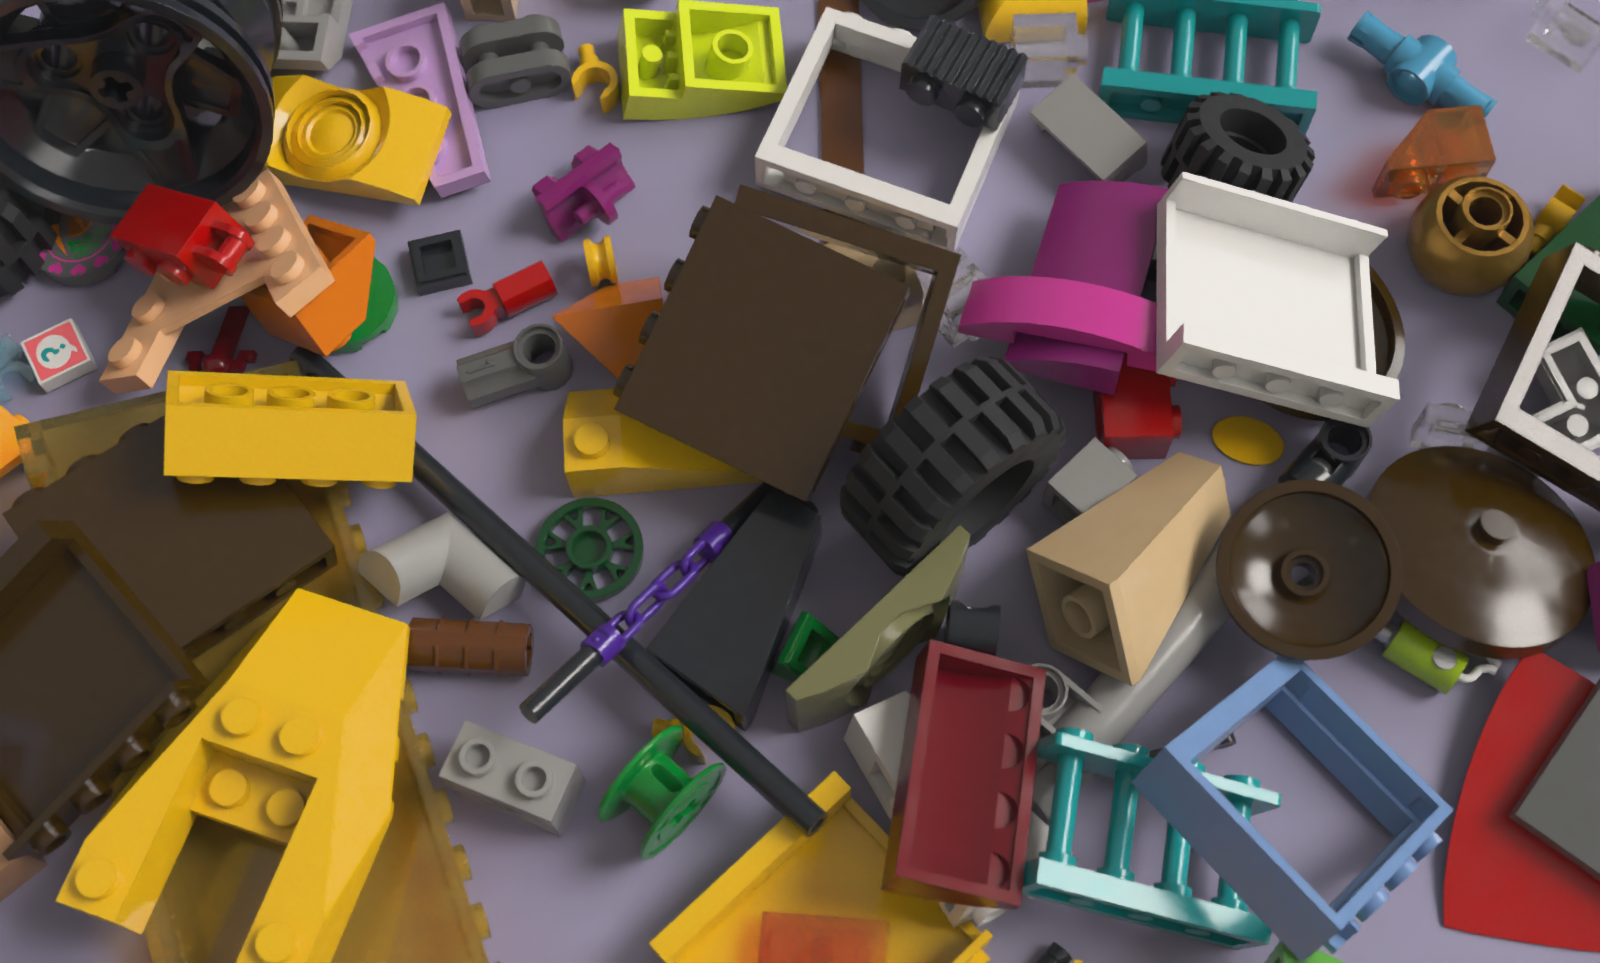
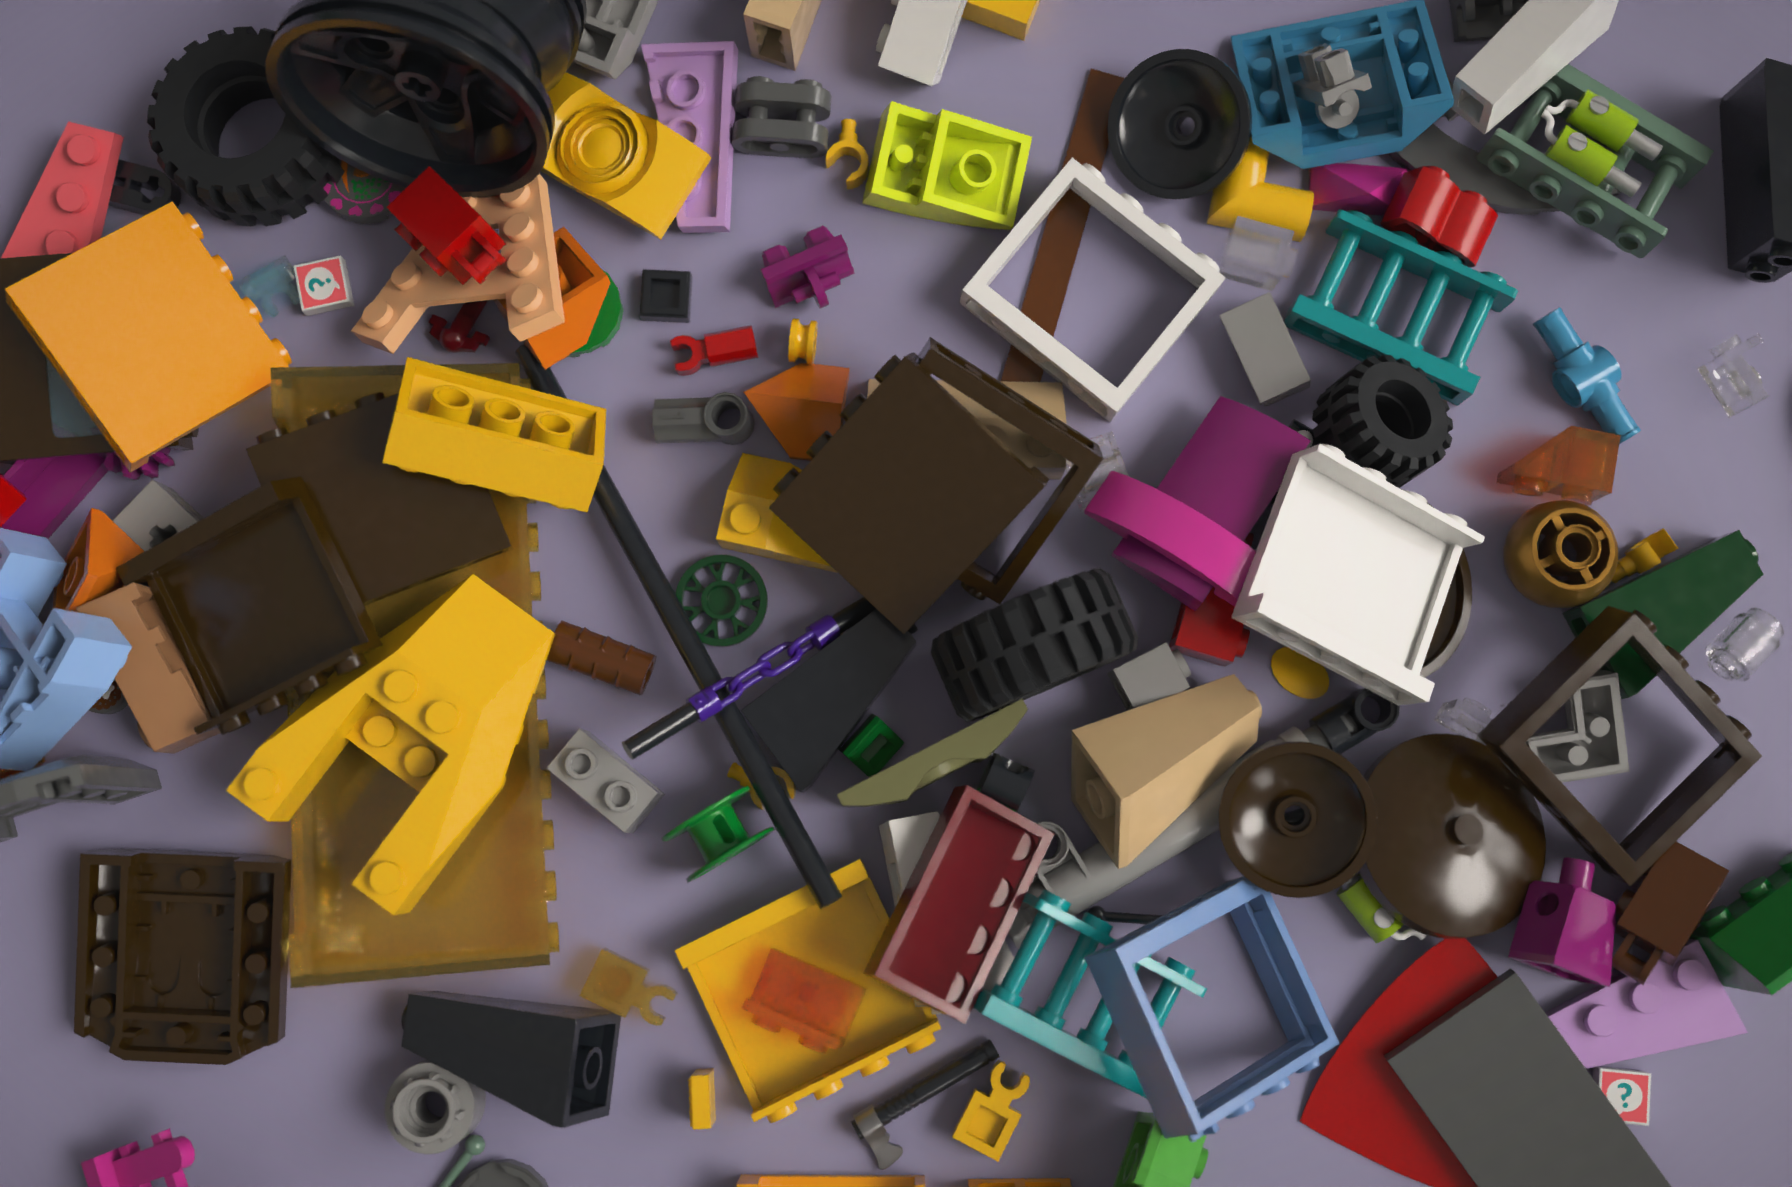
camera: 15 degrees right, 15 degrees up
(446, 555) = (599, 573): light grey brick -> none
(962, 73) = (1168, 270): black brick -> none

